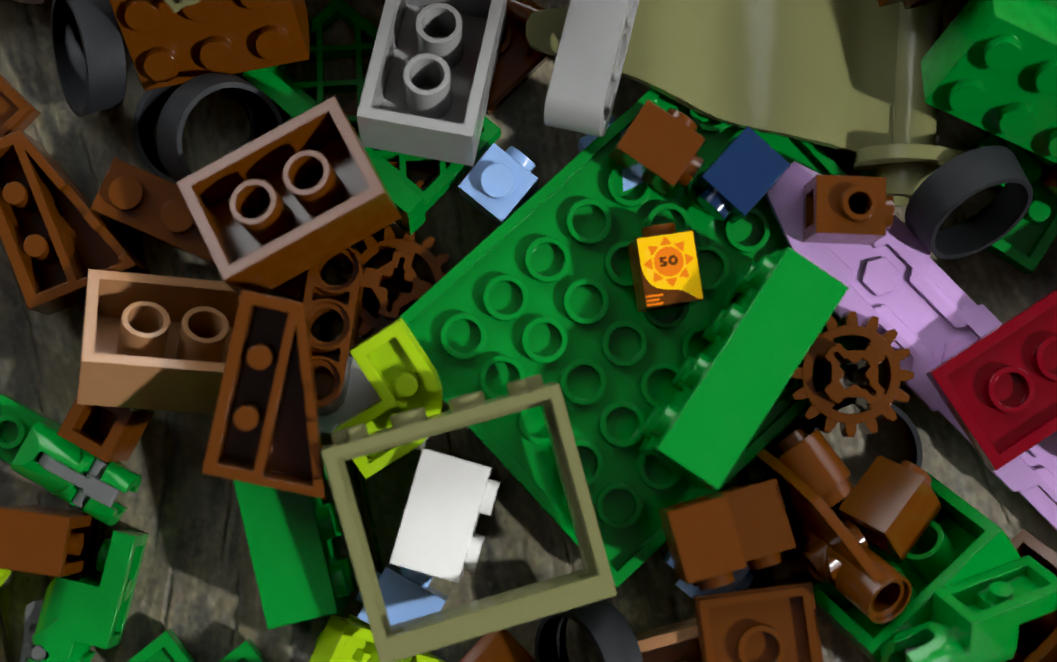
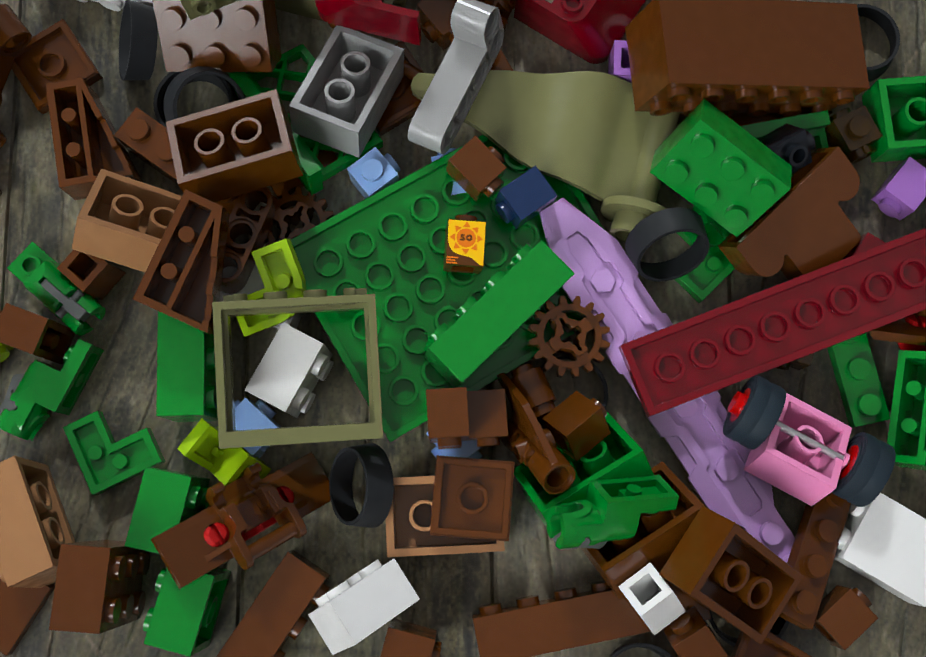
camera: 10 degrees right, 5 degrees down
(846, 209) = (588, 231): reddish brown brick -> none

